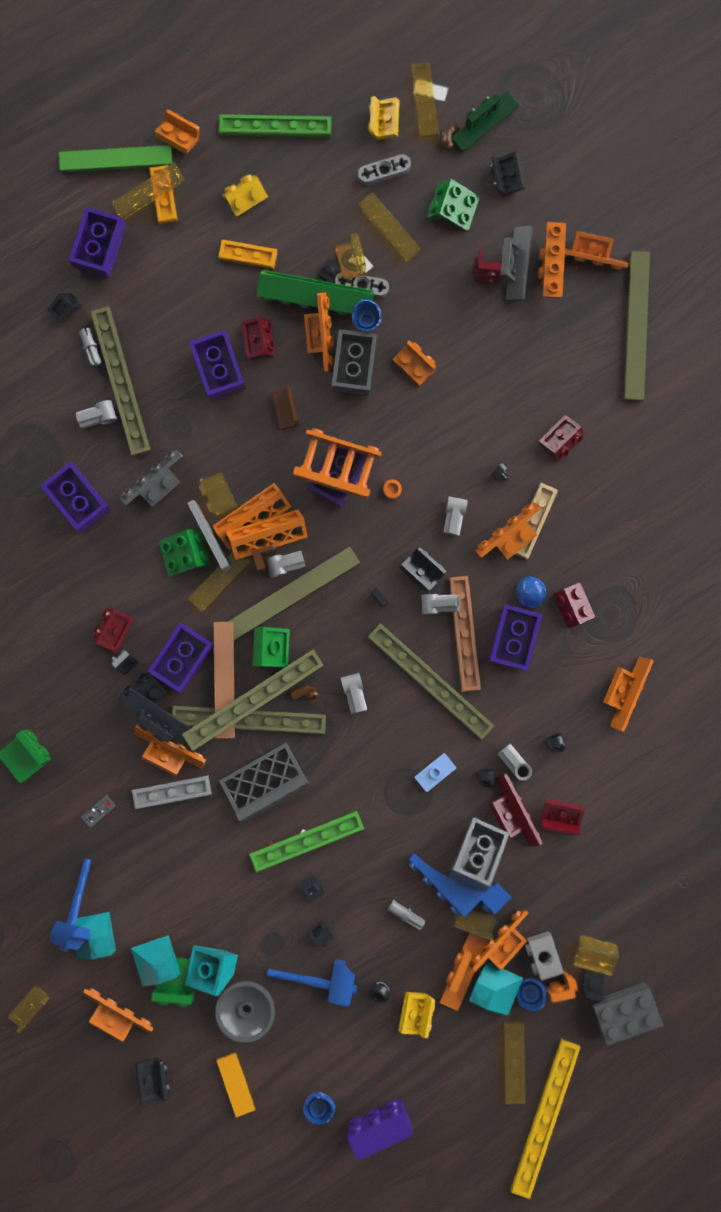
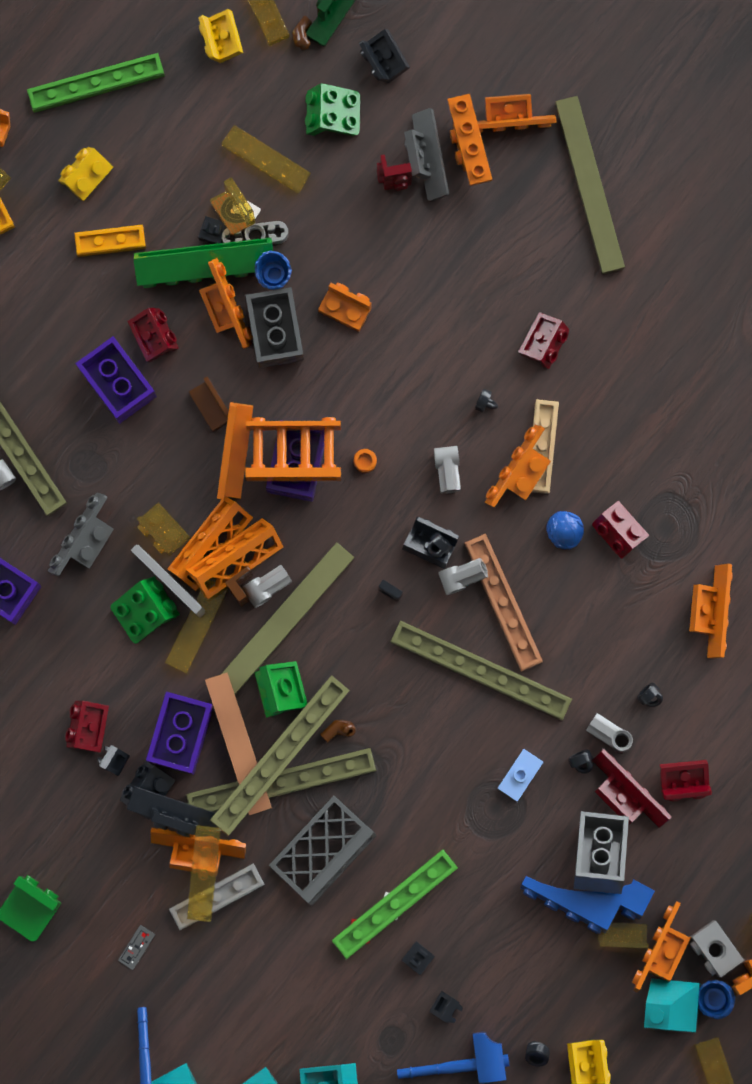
camera: 15 degrees left, 5 degrees down
(165, 773) = (203, 873): none -> clear yellow tile
(292, 450) = (234, 451): none -> orange fence
(353, 689) = (393, 707): light grey piece -> none
(399, 171) = (237, 104): light grey beam -> none
(406, 915) = (539, 953): light grey axle -> none
(431, 573) = (443, 545): none -> black tile
(462, 973) = (627, 1001): orange bracket -> none
(515, 637) = (563, 588): dark purple brick -> none

